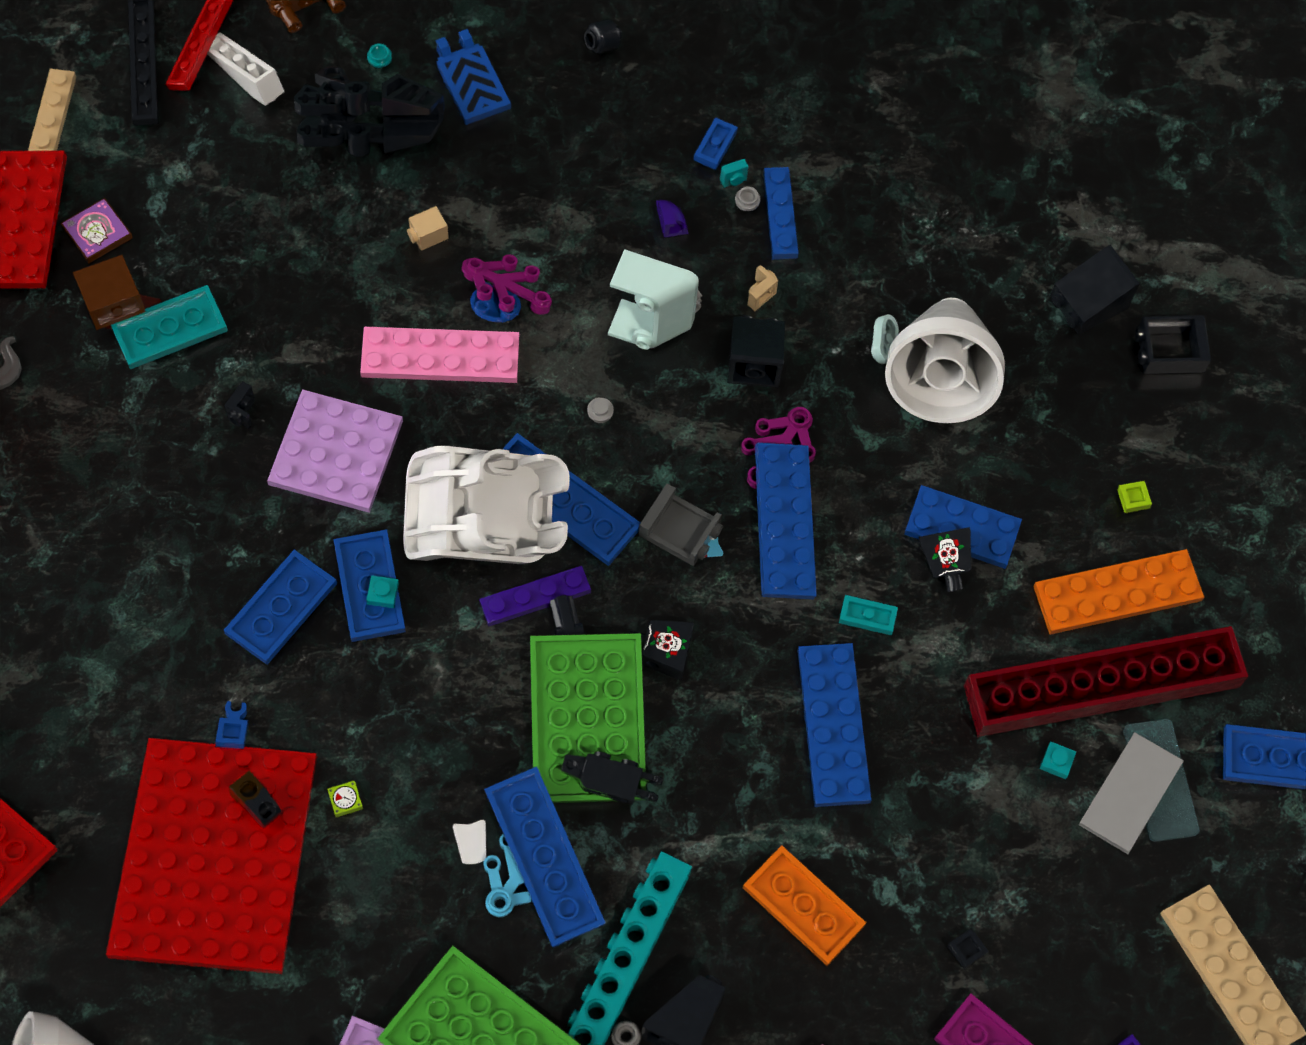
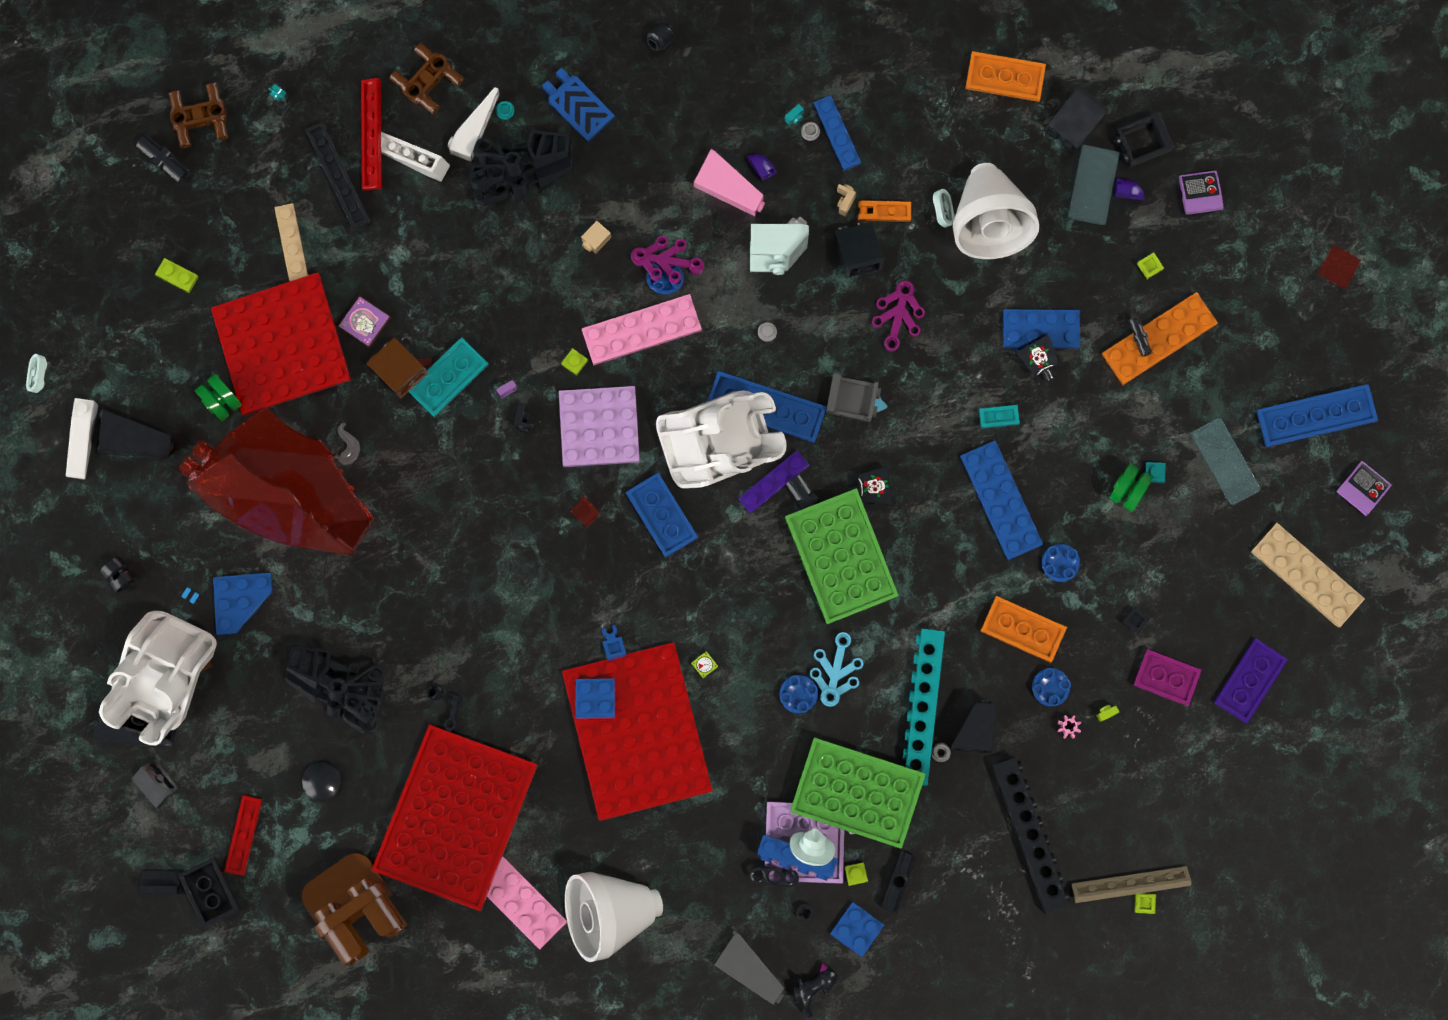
camera: 15 degrees left, 15 degrees up
(174, 787) = (595, 698): none -> blue plate
(236, 364) = (507, 389): none -> medium lavender tile
(255, 799) = (652, 689): leg -> none
(271, 548) = (585, 512): none -> clear red panel
(280, 607) = (609, 551): blue plate -> none
(338, 363) = (574, 362): none -> lime plate
(339, 53) = (473, 128): none -> white slope
(382, 591) = (674, 518): teal plate -> none
(457, 883) = (798, 694): none -> blue dish
(471, 841) = (795, 662): white sticker -> none
(544, 857) = (848, 658): blue plate -> none
(609, 777) = (871, 593): black hinge -> none
(616, 219) = (728, 185): none -> bright pink slope
(715, 143) = (772, 95): blue plate -> none
(785, 521) = (921, 369): blue plate -> none
(808, 318) = (885, 211): none -> orange plate
(815, 999) = (1051, 687): none -> blue dish
(887, 833) = (1060, 562): none -> blue dish
(1015, 762) = (1130, 487): none -> green wheel
(1018, 216) = (1005, 76): none -> orange plate
(1090, 377) = (1093, 185): none -> clear light blue tile
(1093, 576) = (1140, 337): none -> black pin
(1105, 681) = (1170, 408): dark red brick -> none
(1131, 793) = (1209, 478): light grey tile -> none
(1135, 398) = (1128, 189): none -> dark purple brick
(1229, 431) = (1201, 192): none -> slope

